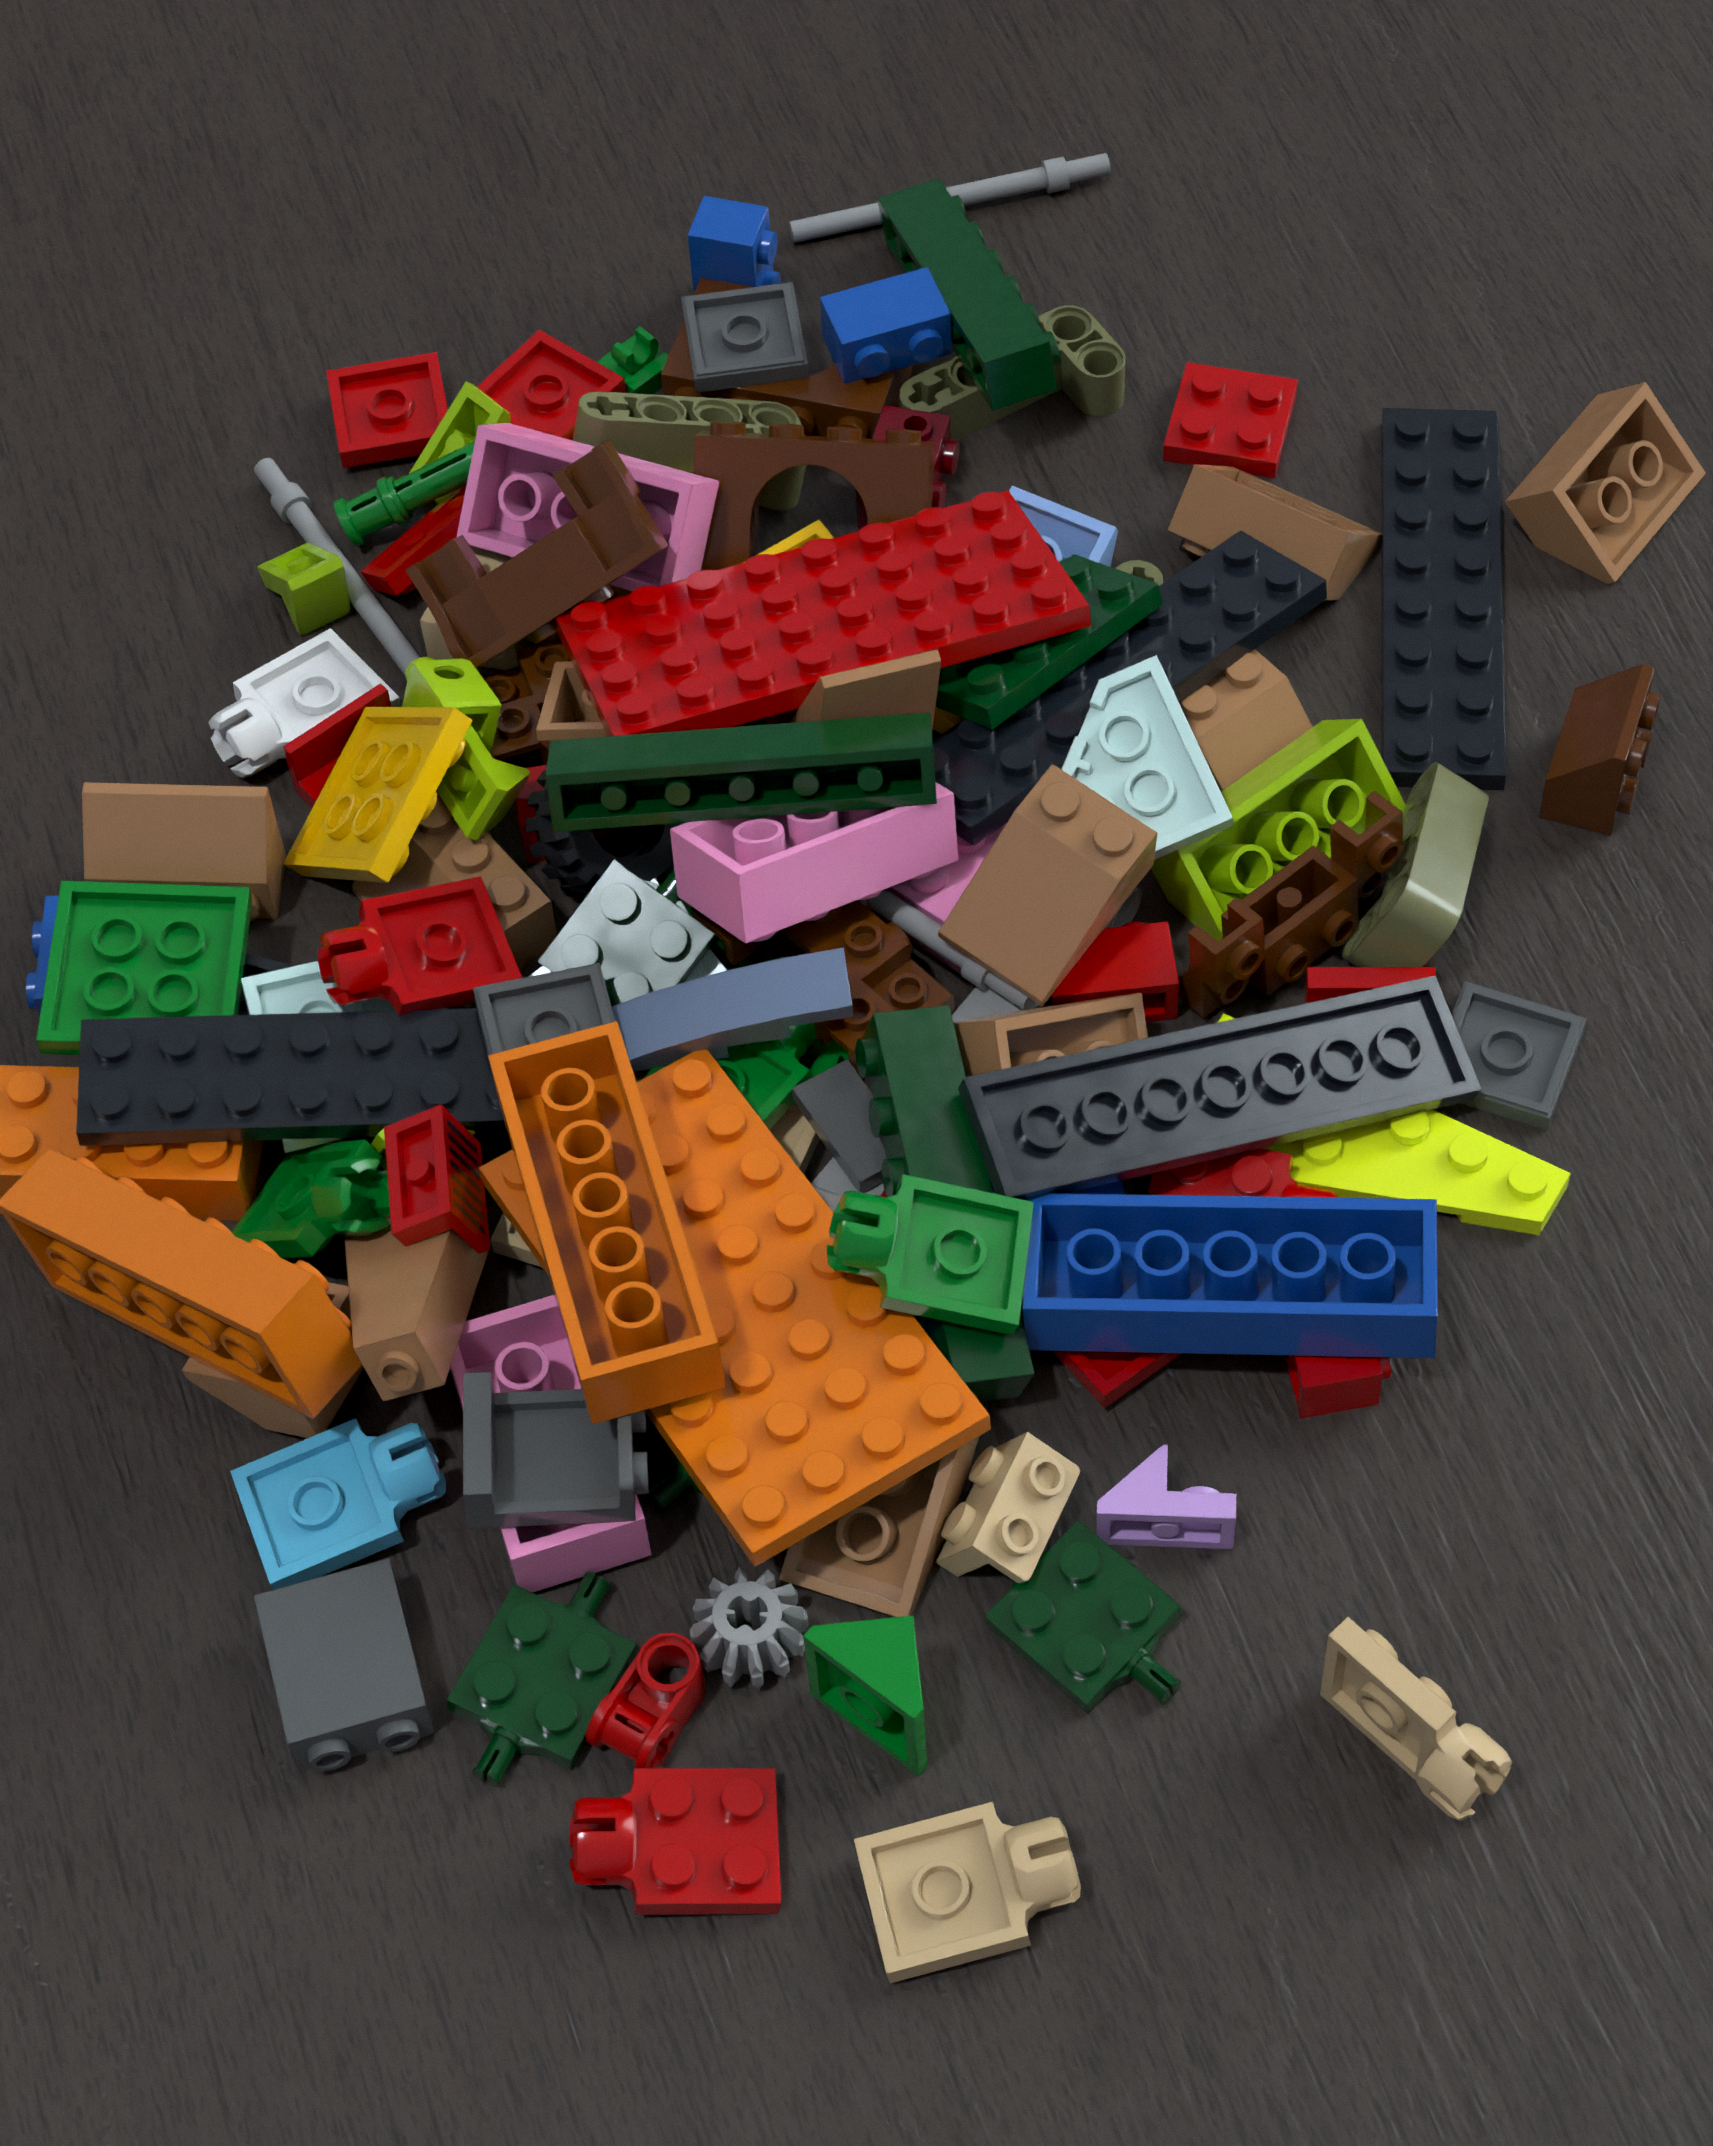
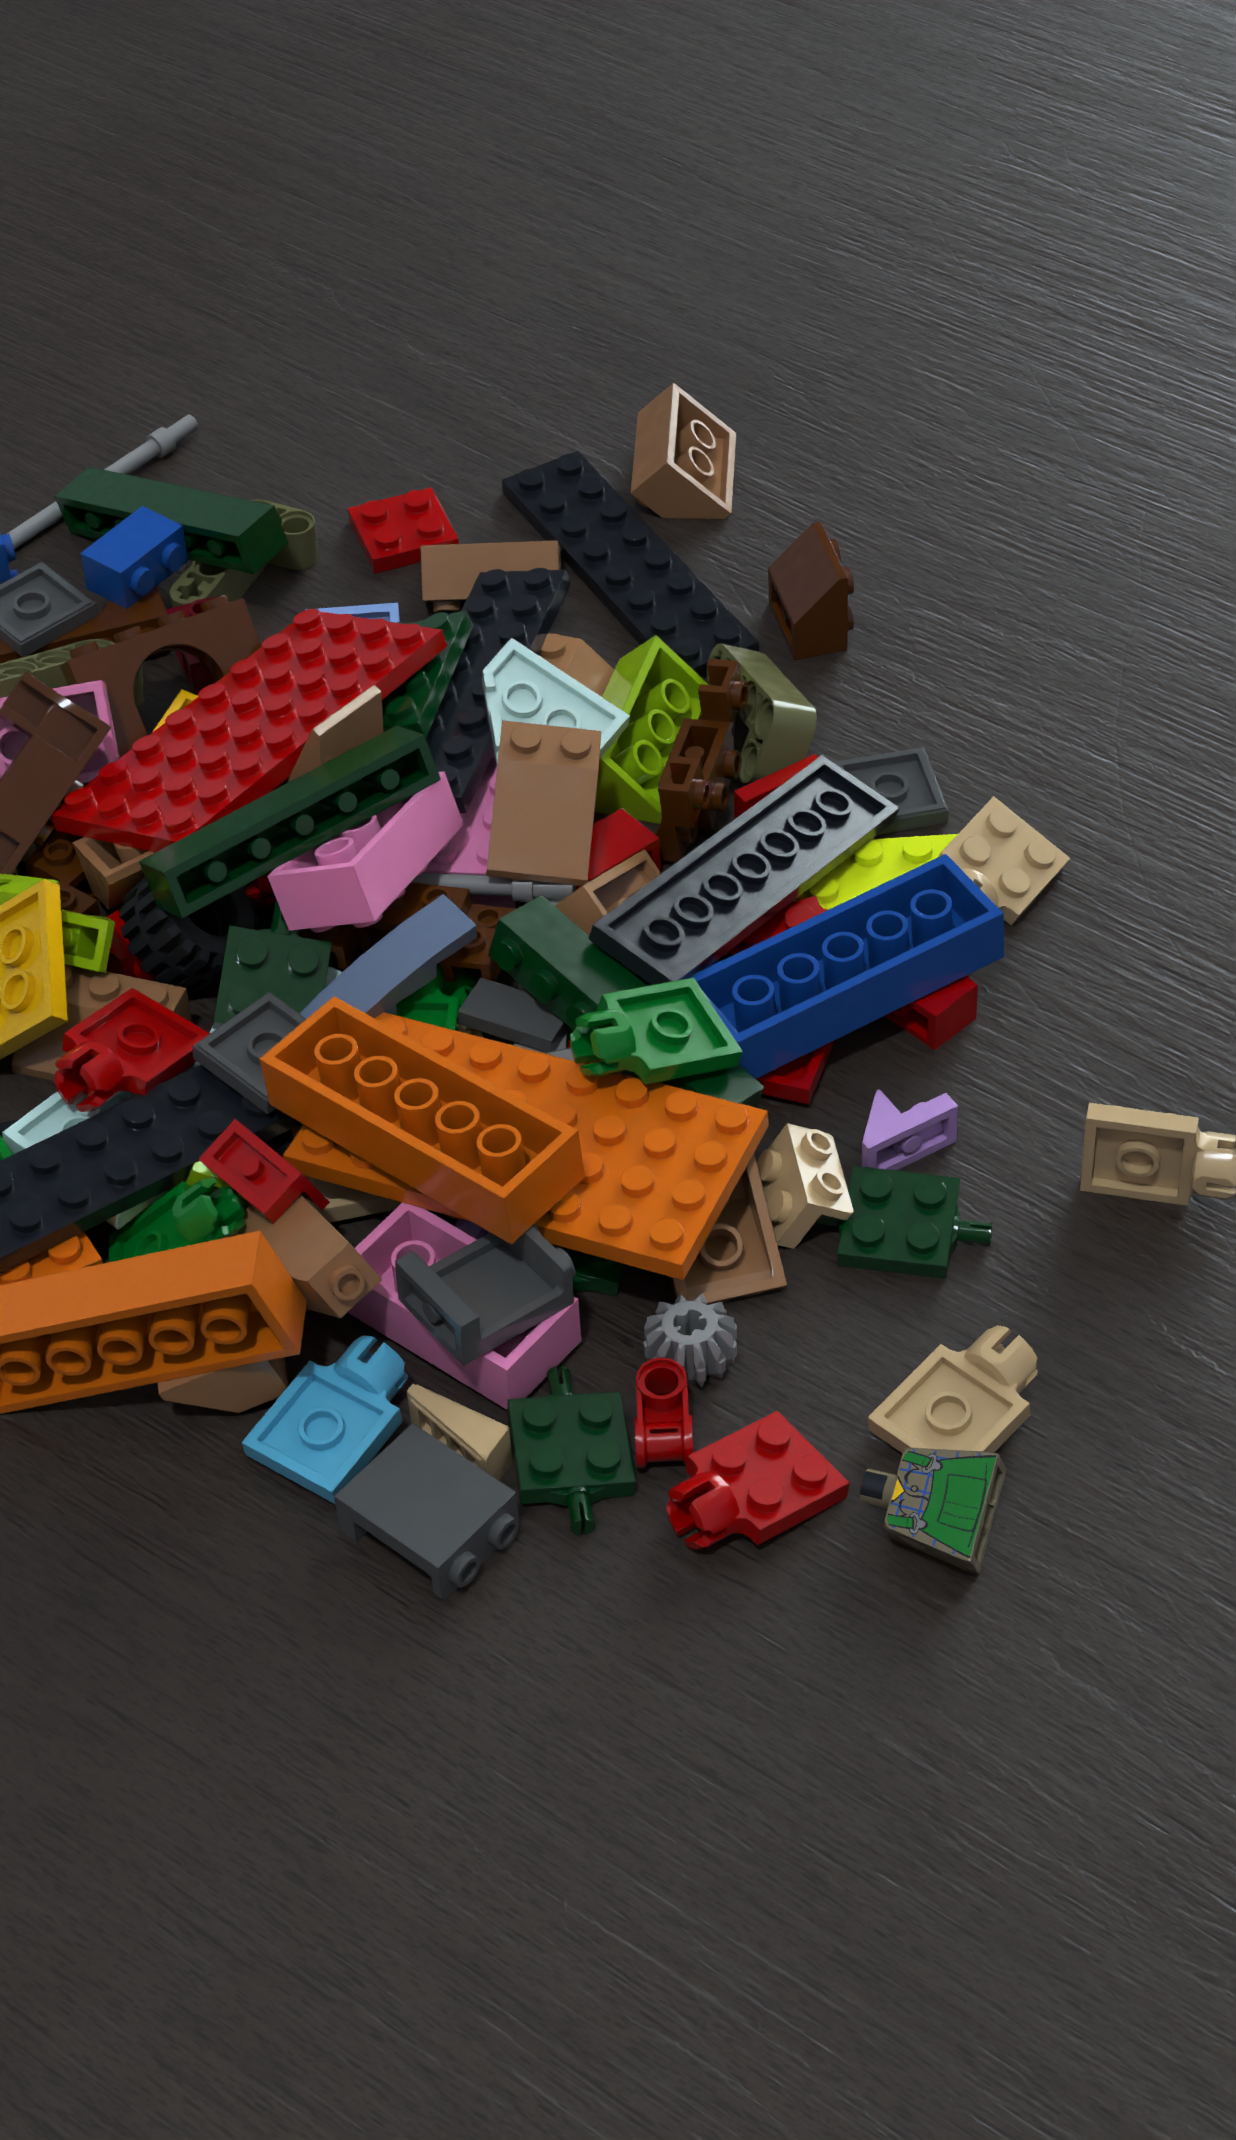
camera: 35 degrees left, 10 degrees down
(446, 1616) = (462, 1429): none -> tan slope
(838, 1997) = (940, 1502): none -> torso
(872, 1682) = (813, 1316): green slope -> none
(1536, 1228) = (1006, 858): none -> tan plate

